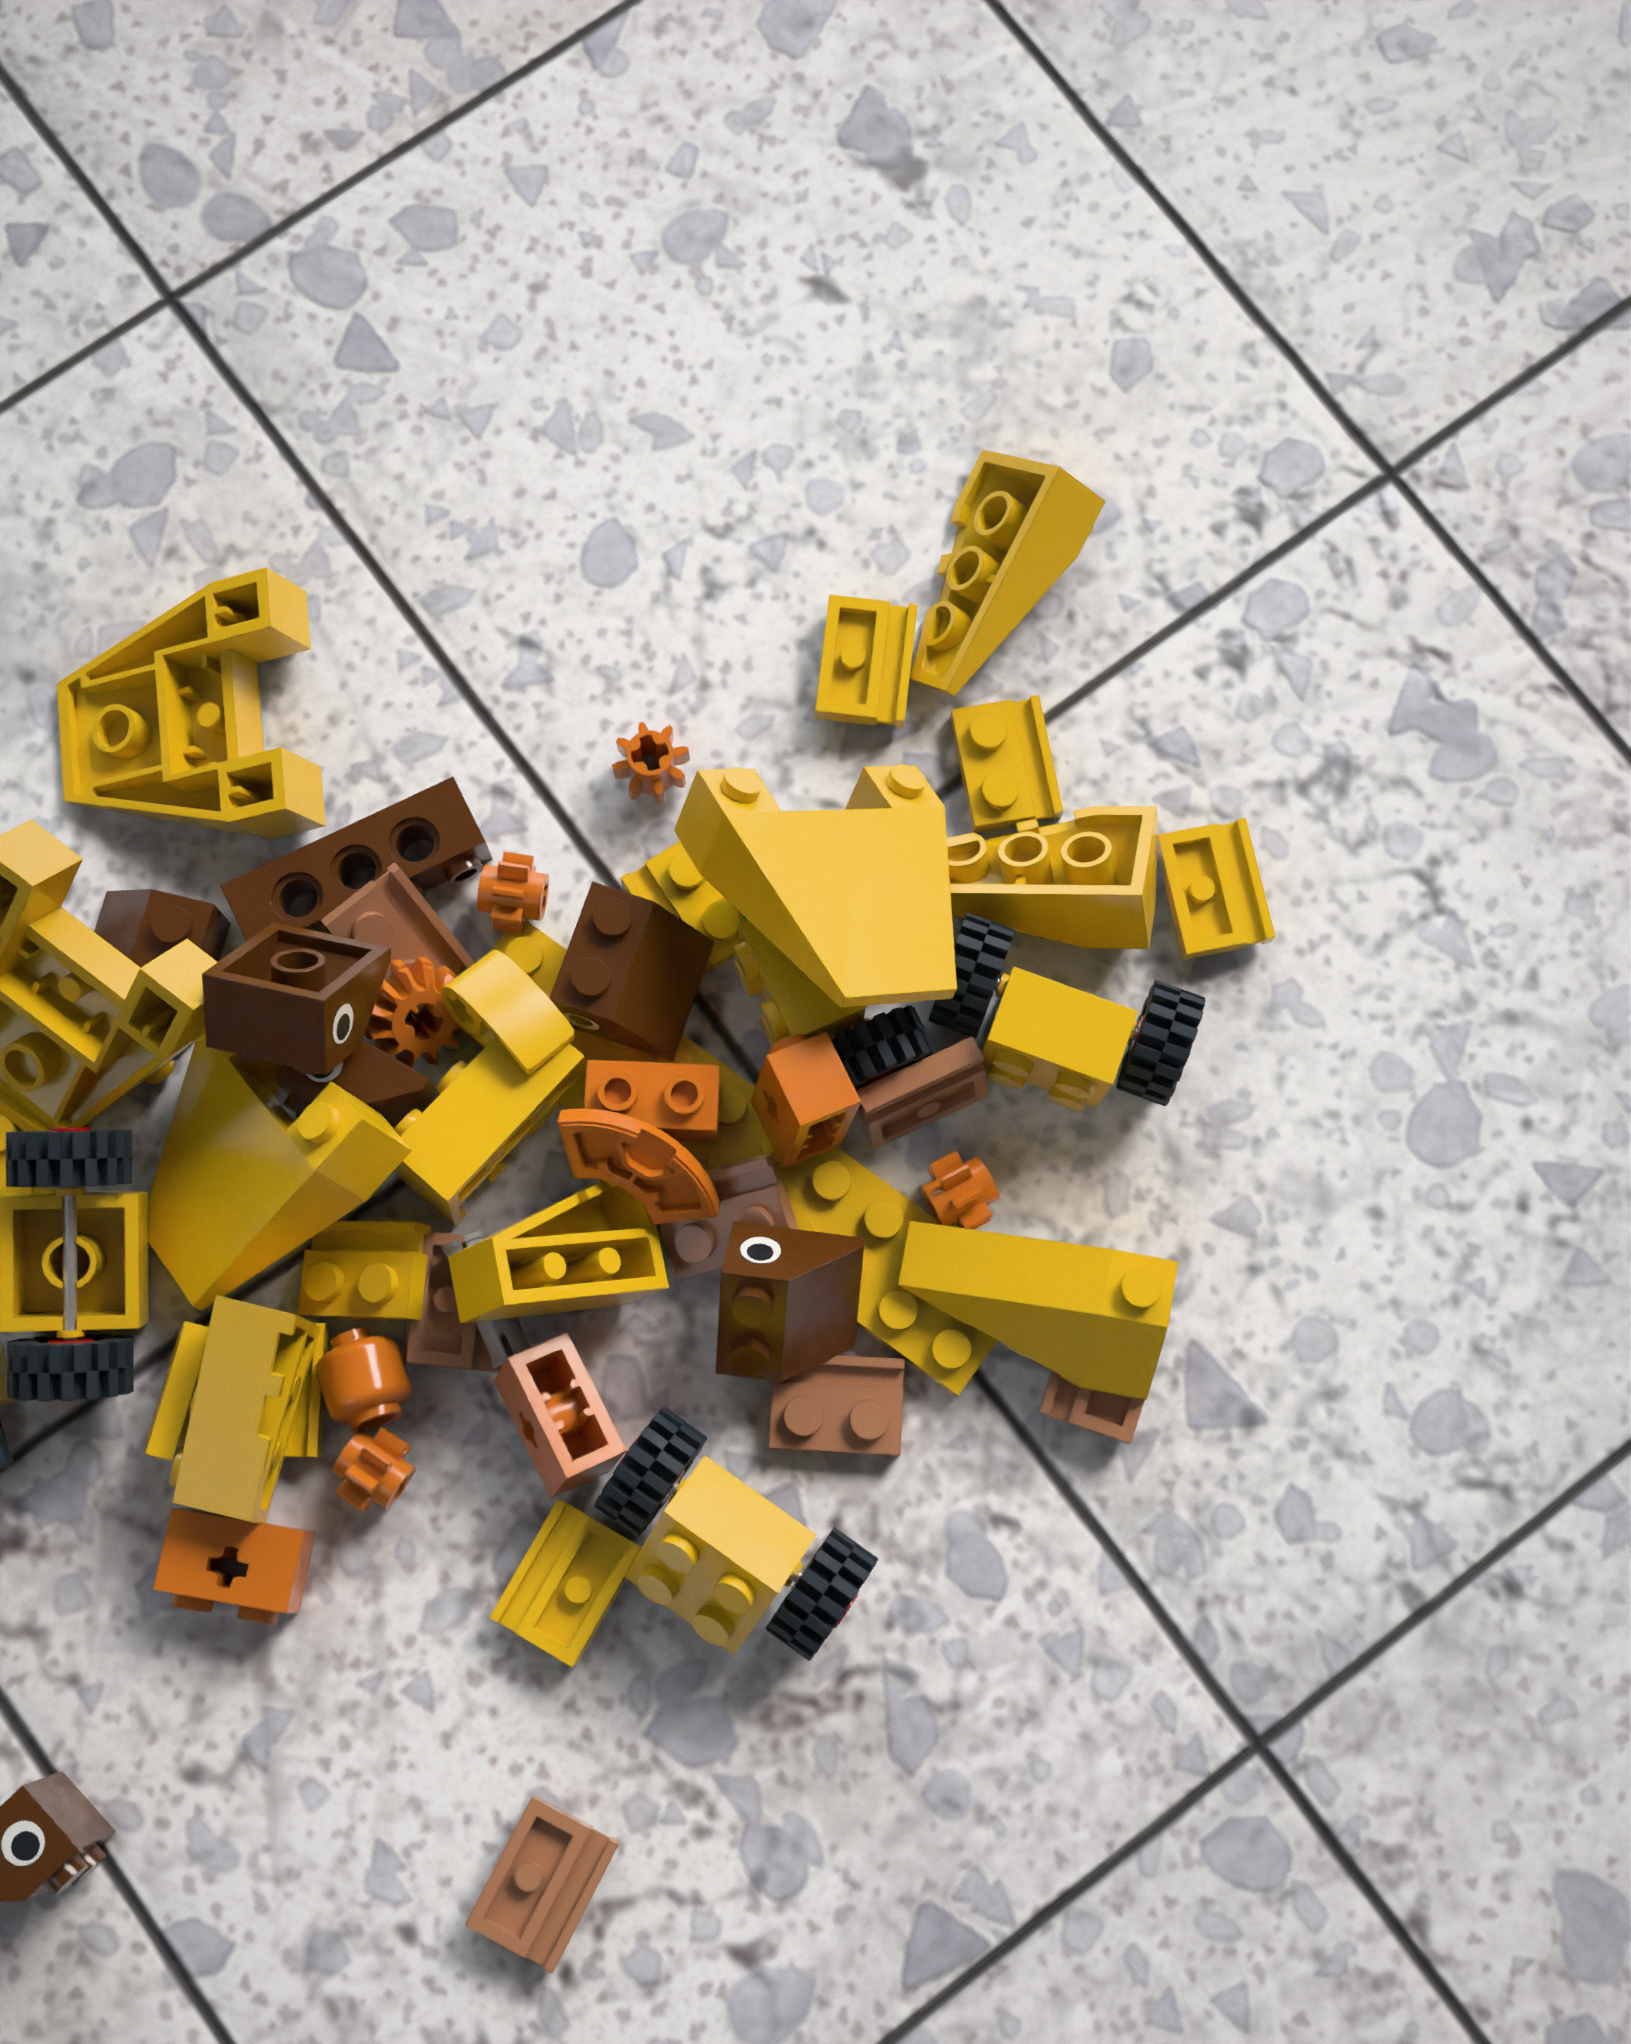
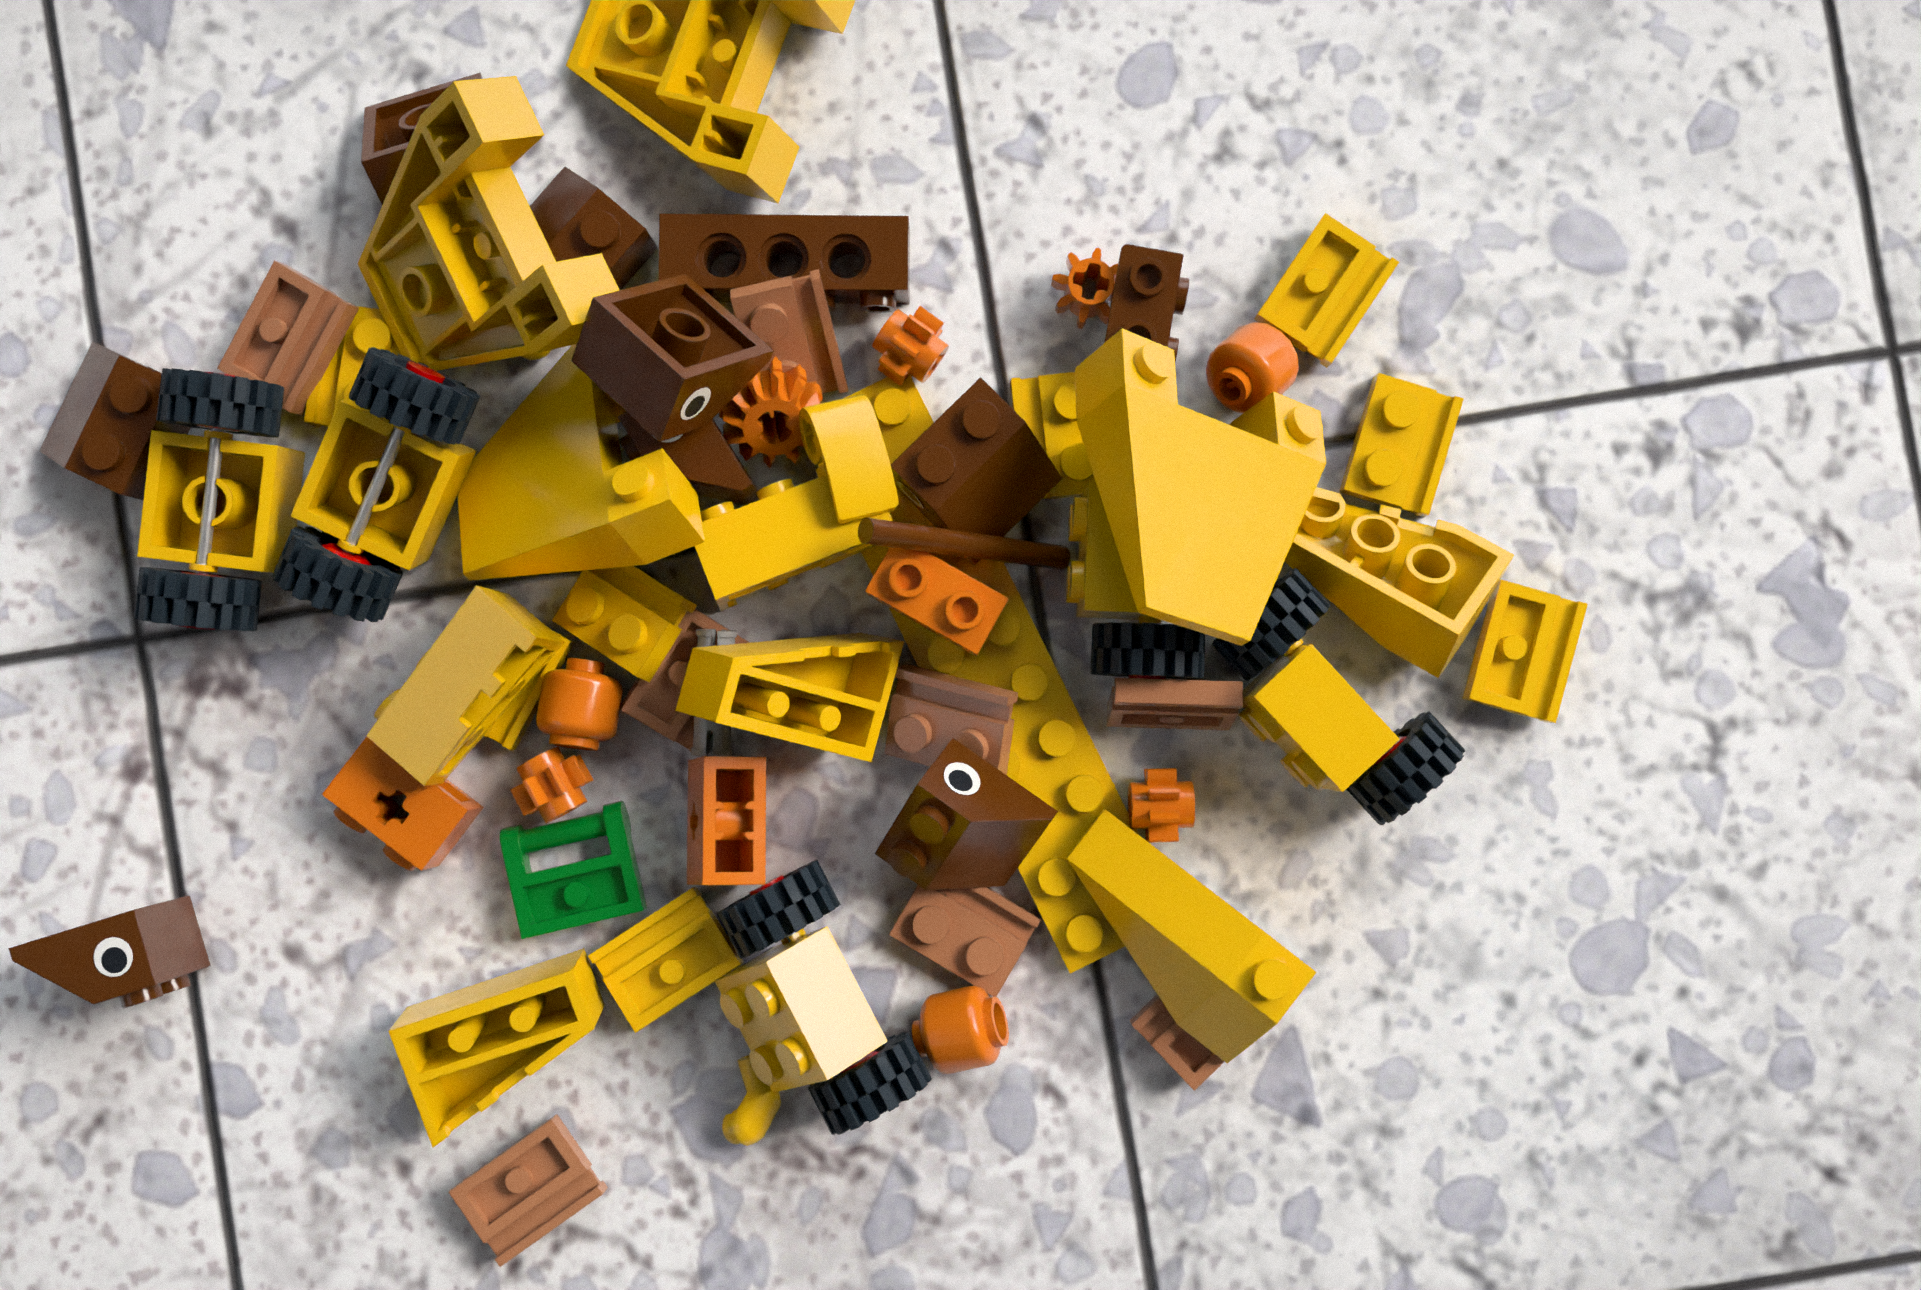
camera: 30 degrees right, 10 degrees up
(172, 1410) = (412, 645): yellow plate -> none
(432, 1743) = (491, 1035): none -> yellow wedge
(445, 1562) = (577, 890): none -> green plate
(640, 1161) = (899, 646): orange tile -> none
(652, 1039) = (962, 543): none -> reddish brown bar
(705, 734) = (1148, 294): none -> reddish brown bracket
(726, 1685) = (755, 1112): none -> yellow arm
(804, 1098) = (1068, 662): orange brick -> none
(832, 757) = (1251, 366): none -> orange head
(883, 1501) = (960, 1029): none -> orange head
(1013, 541) = (1515, 246): yellow wedge -> none

